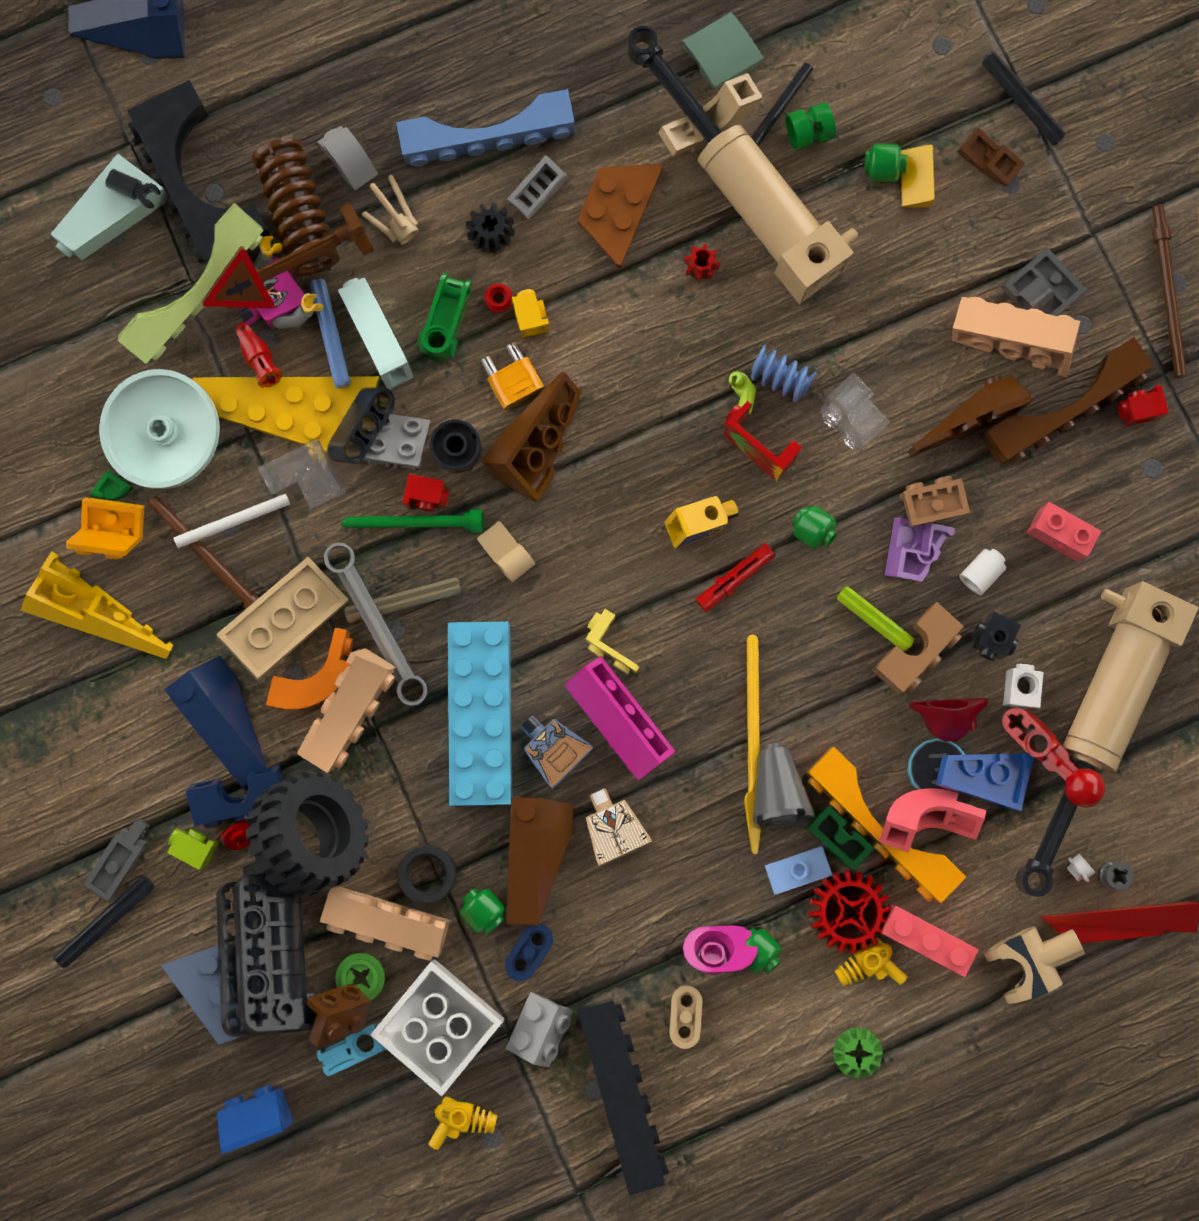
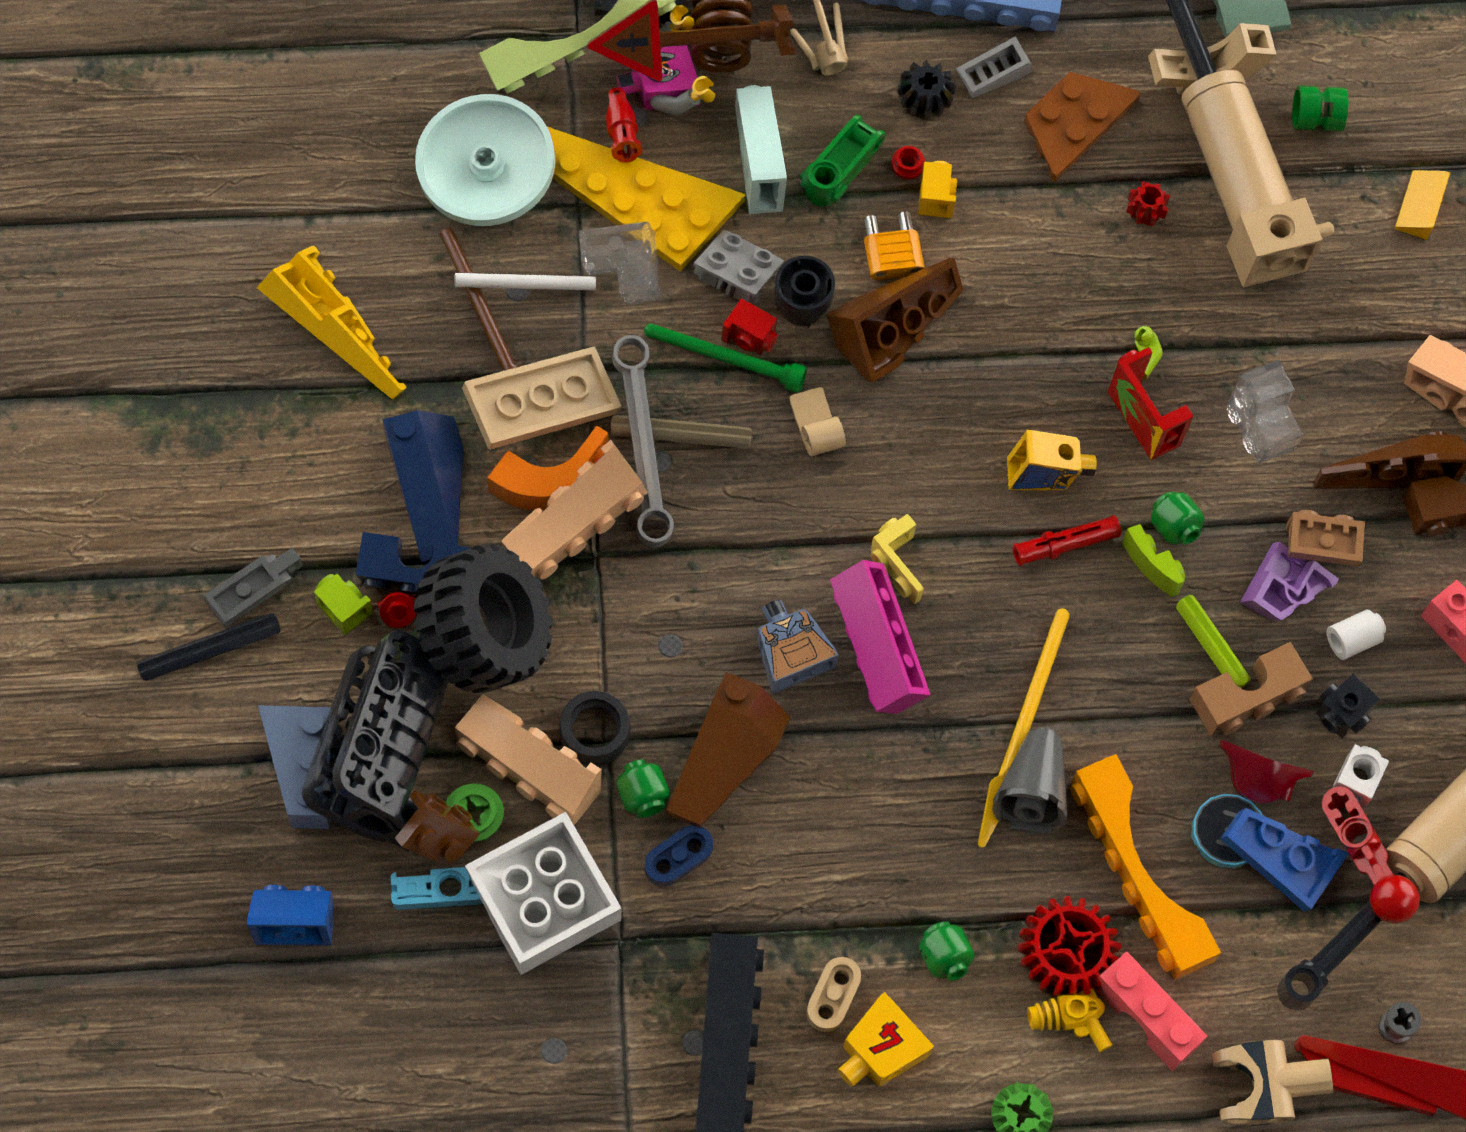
camera: 15 degrees right, 15 degrees down
(108, 528) = (391, 236): light orange bracket -> none
(110, 487) = (405, 204): green tile -> none
(330, 335) = (709, 137): medium blue axle -> none
(349, 430) = (694, 231): black beam -> none
(458, 1118) = (527, 1007): yellow piece -> none
(479, 713) = (722, 578): medium azure brick -> none
(539, 1030) = (658, 946): light grey bracket -> none
(613, 828) = (829, 757): torso -> none
(719, 949) = (899, 929): dark pink piece -> none
(736, 1043) = (883, 1045): none -> yellow torso
(781, 374) = (1196, 347): medium blue piece -> none
(782, 103) = (1297, 77): black bar -> none
(798, 870) = (1024, 882): light blue plate -> none
(818, 575) = (1159, 568): none -> lime slope
(846, 848) = (1077, 849): dark green brick -> none
(885, 163) = (1390, 174): green head -> none
(929, 809) = (1201, 864): coral arch -> none
(1080, 868) = (1360, 1001): white plate -> none

